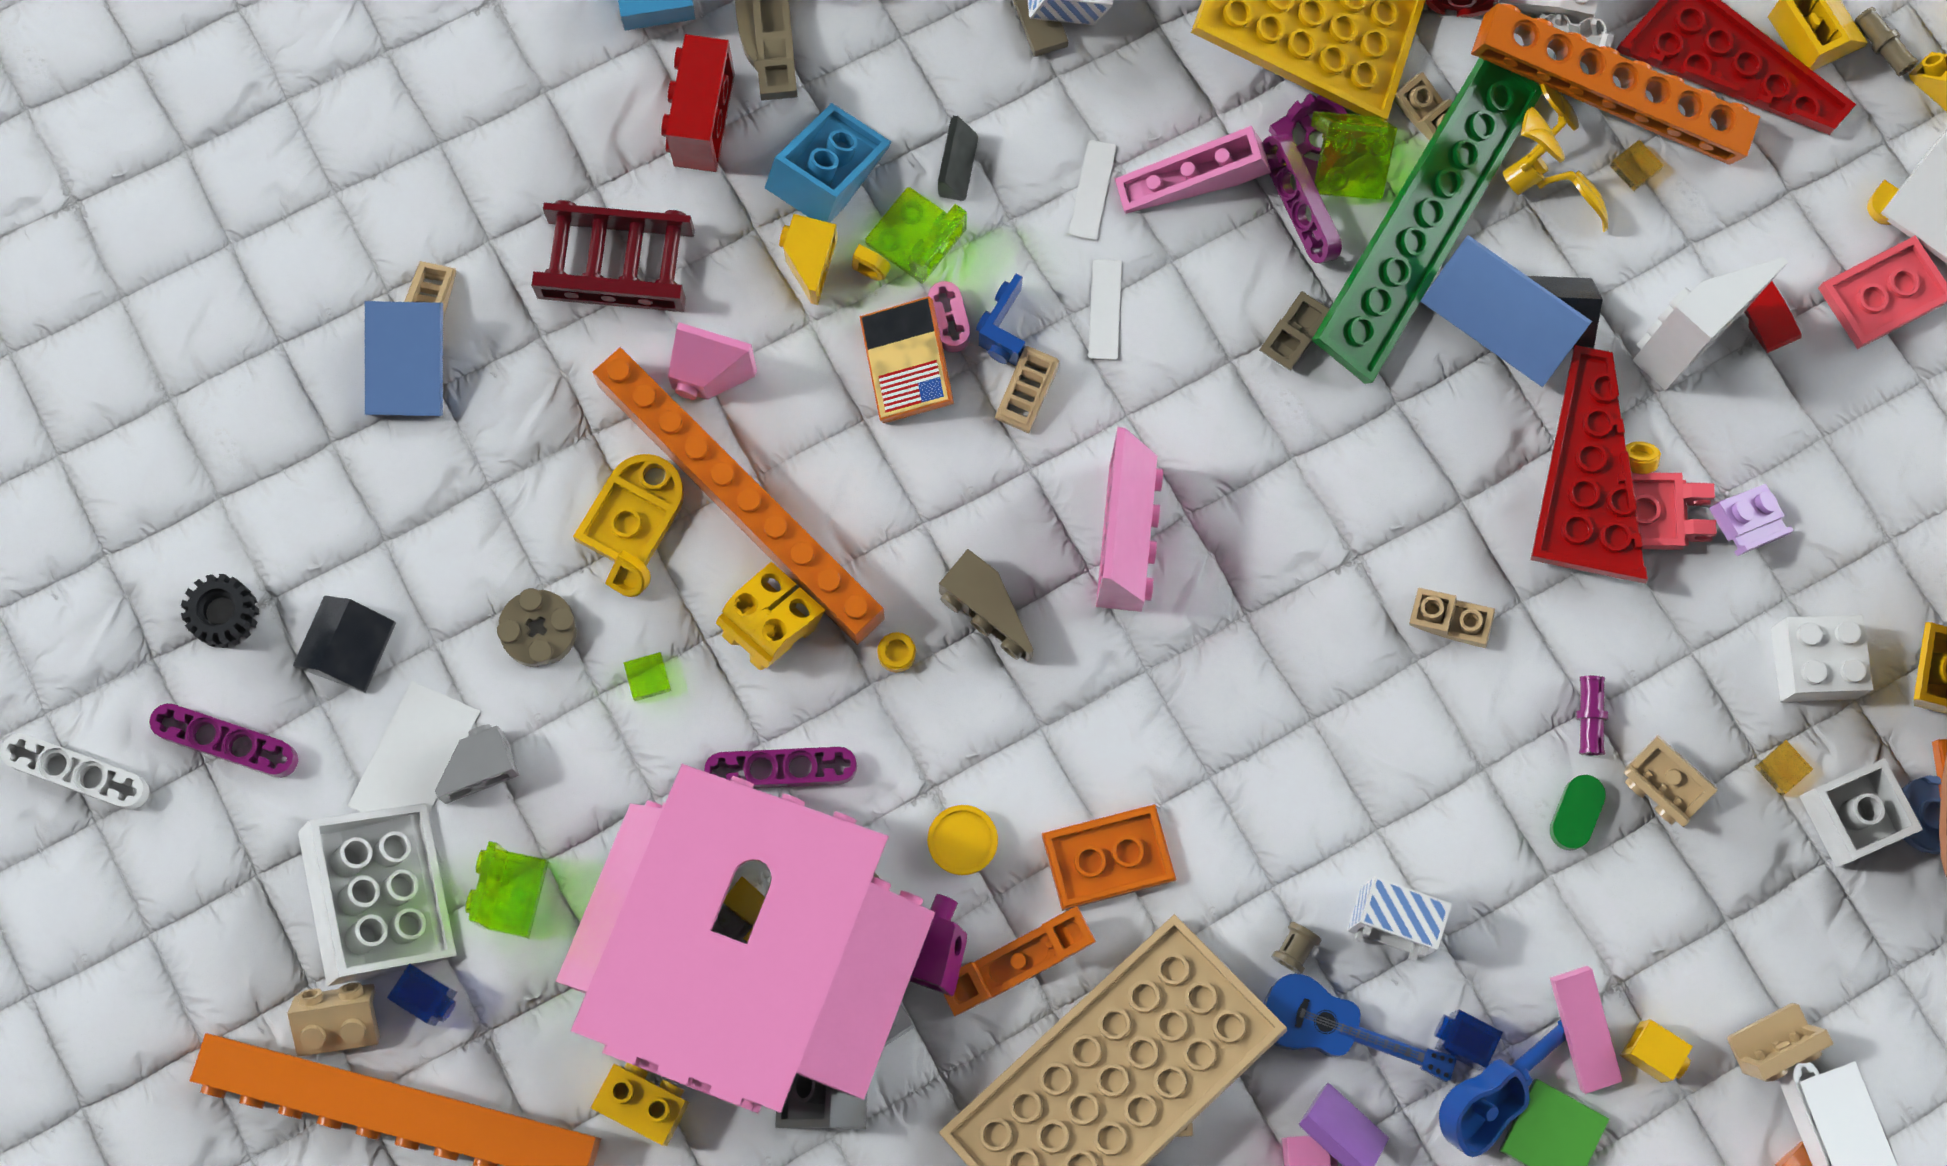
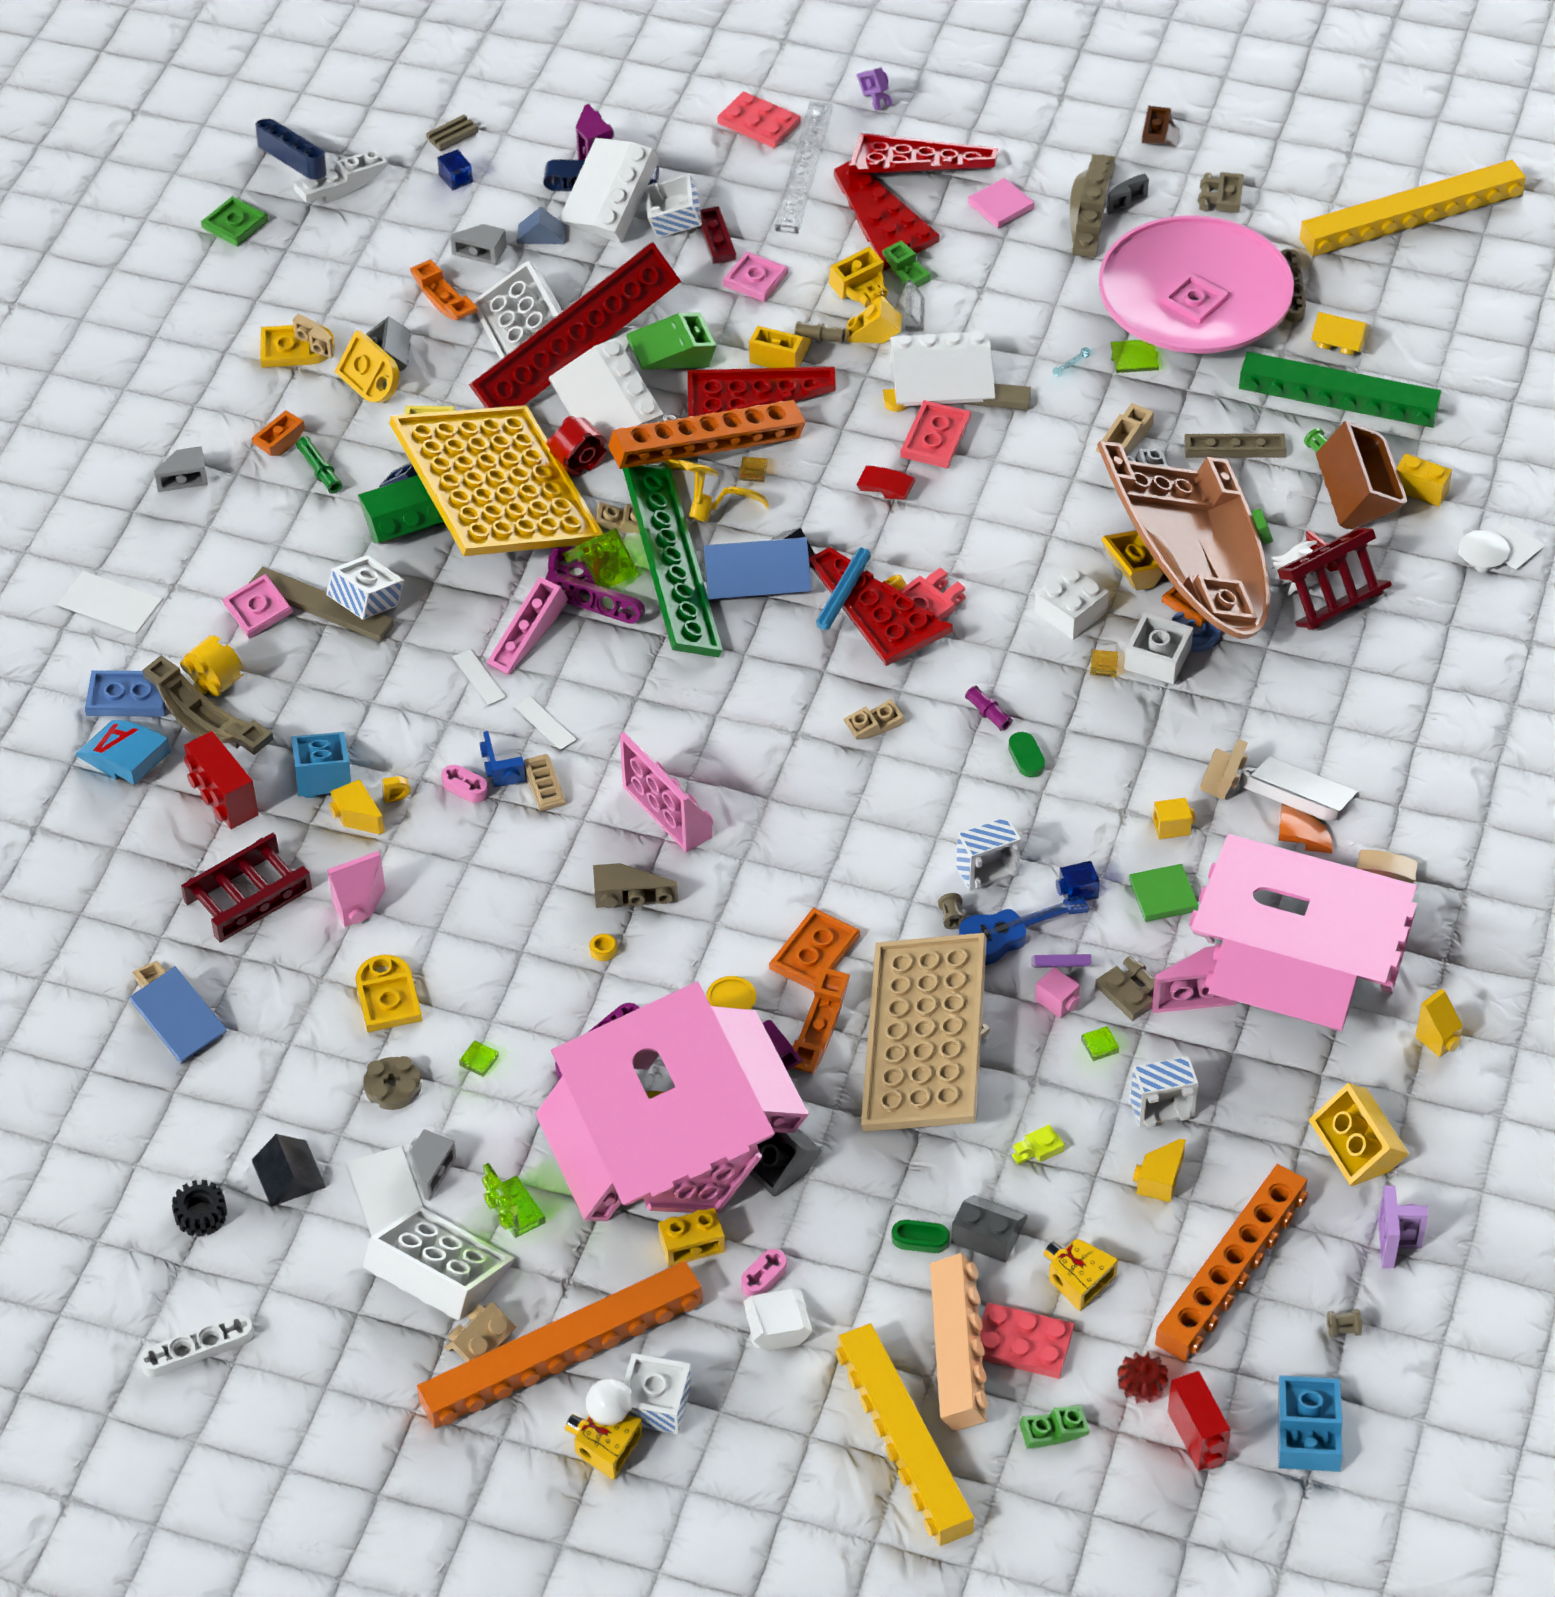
camera: 40 degrees left, 25 degrees down
(222, 743) = (271, 1270): magenta beam -> none
(423, 995) = (518, 1283): clear blue brick -> none
(628, 575) = (418, 1019): yellow tile -> none
(739, 496) = (439, 938): orange brick -> none
(768, 619) = (521, 979): yellow hips -> none
(906, 360) = (464, 815): tile -> none
(917, 234) = (407, 757): clear neon green bracket -> none
(957, 160) = (390, 713): pearl dark grey slope -> none
(1295, 331) = (657, 658): dark tan slope -> none
(1484, 1105) = (1117, 892): blue piece -> none
(1572, 423) = (843, 589): none -> dark azure axle
(1586, 1029) = (1129, 832): bright pink tile -> none
(1668, 781) = (1055, 705): tan bracket -> none
(1699, 319) = (858, 496): white slope -> none
(1751, 519) = (974, 569): lavender plate -> none

